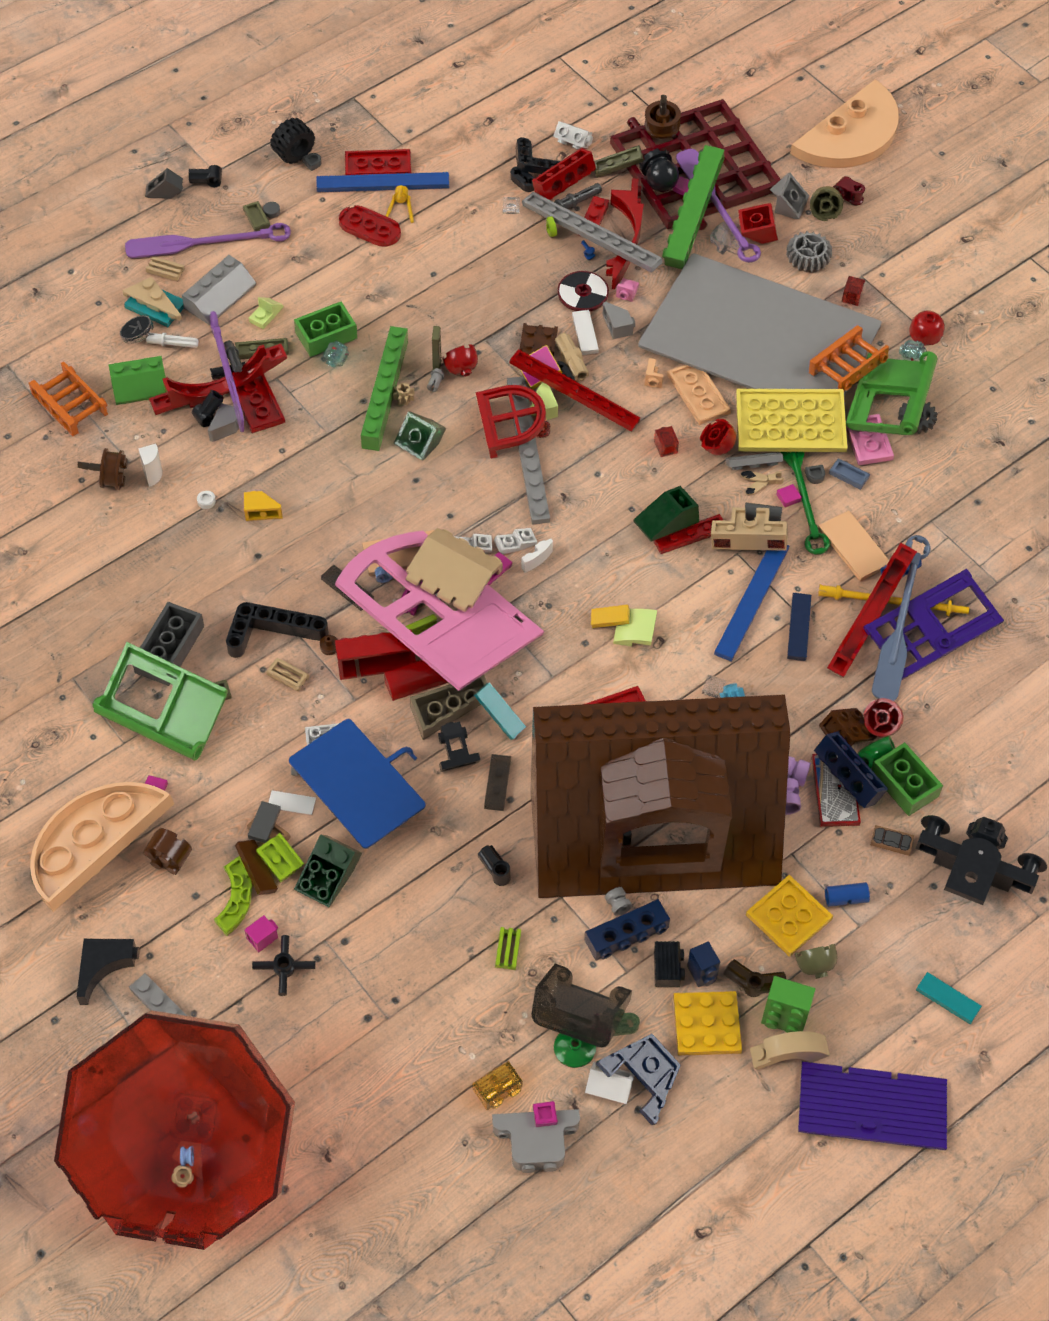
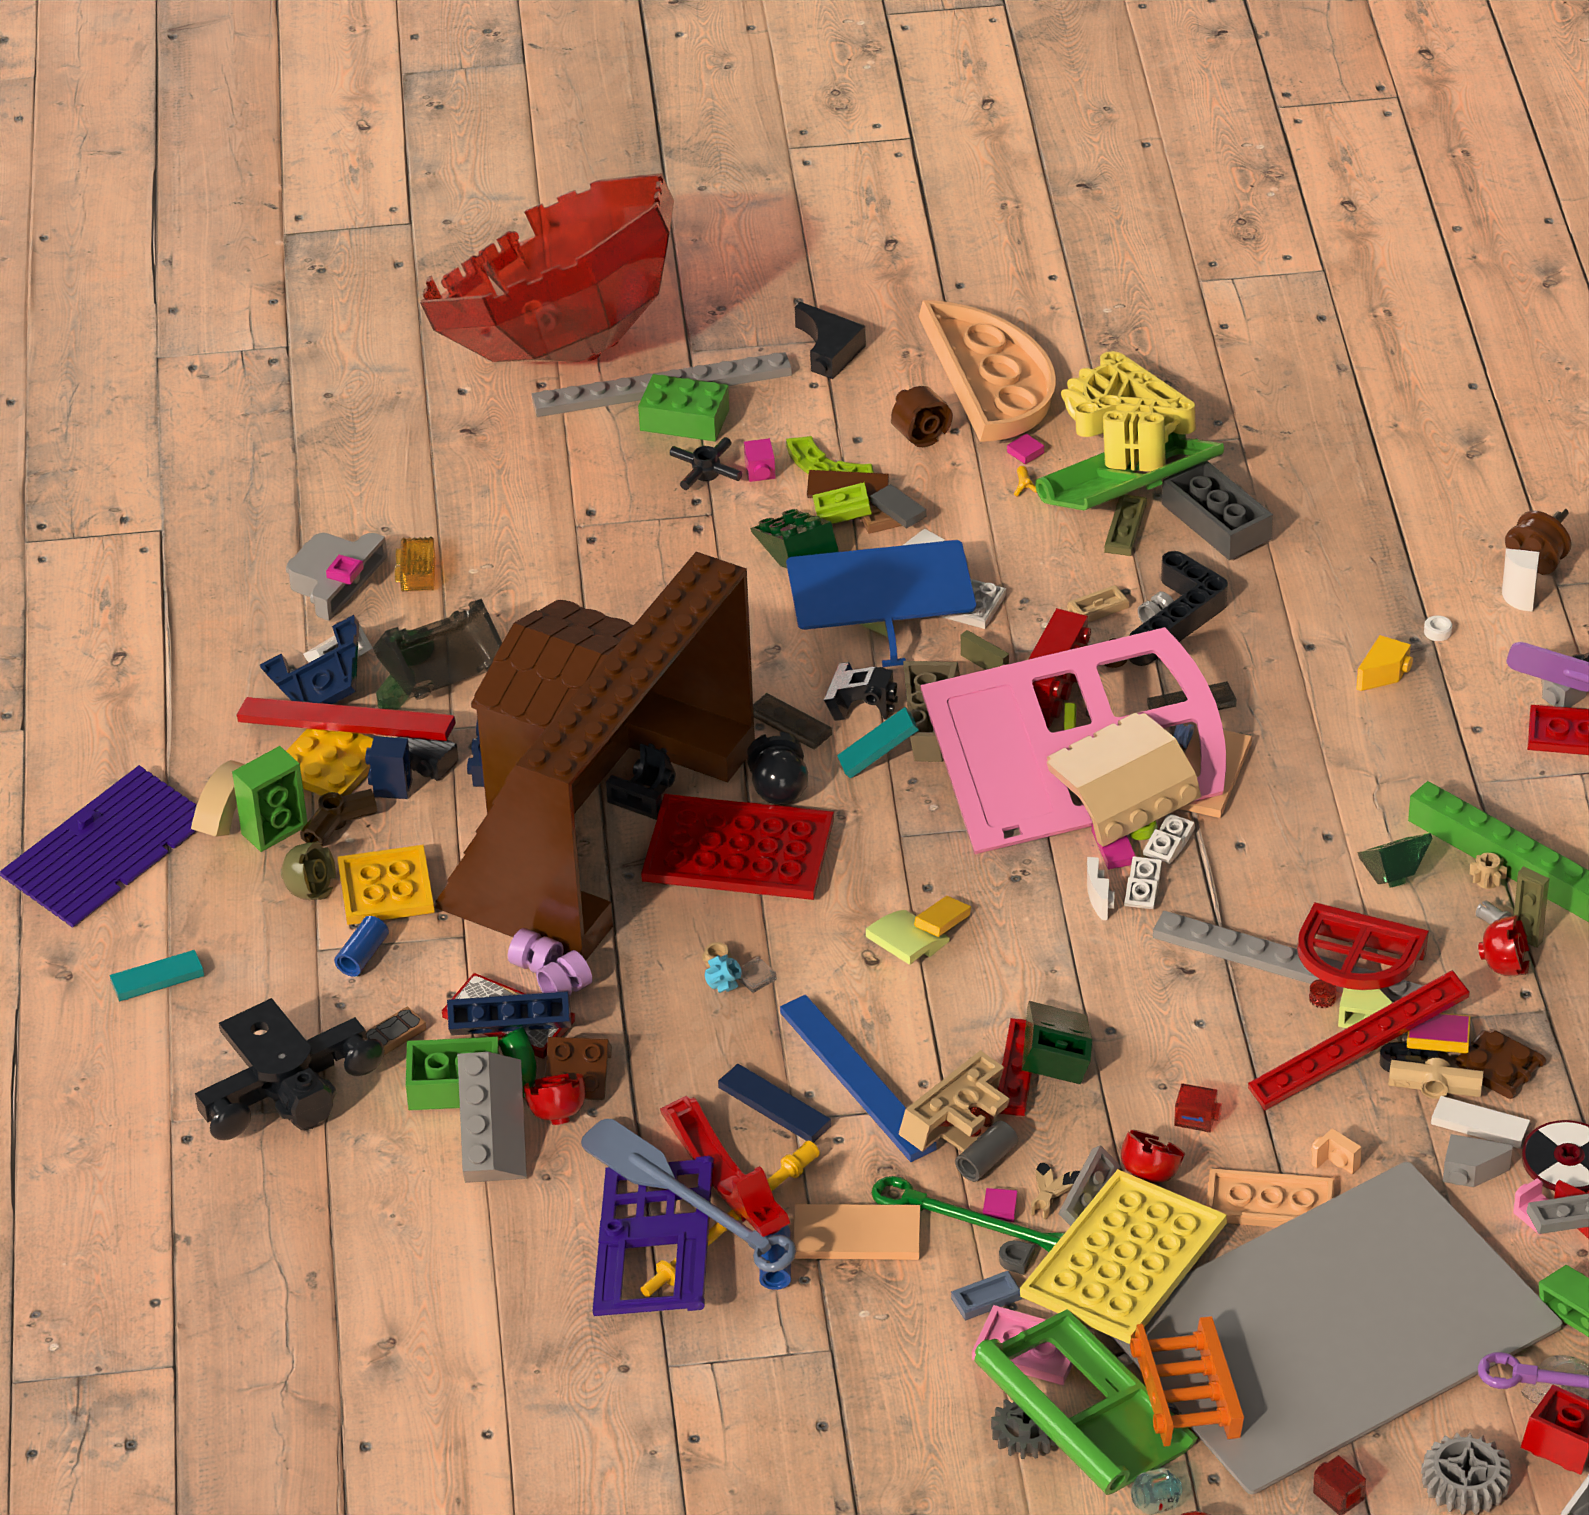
camera: 125 degrees right, 15 degrees down
(132, 703) = (1130, 409): none -> light yellow beam
(190, 770) = (1024, 481): none -> yellow bar
(232, 1003) = (683, 407): none -> bright green brick
(279, 636) = (1157, 603): none -> light grey wheel
(376, 705) = (982, 652): none -> olive tile
(679, 1022) = (346, 718): none -> red tile
(930, 734) = (491, 1117): none -> light grey slope

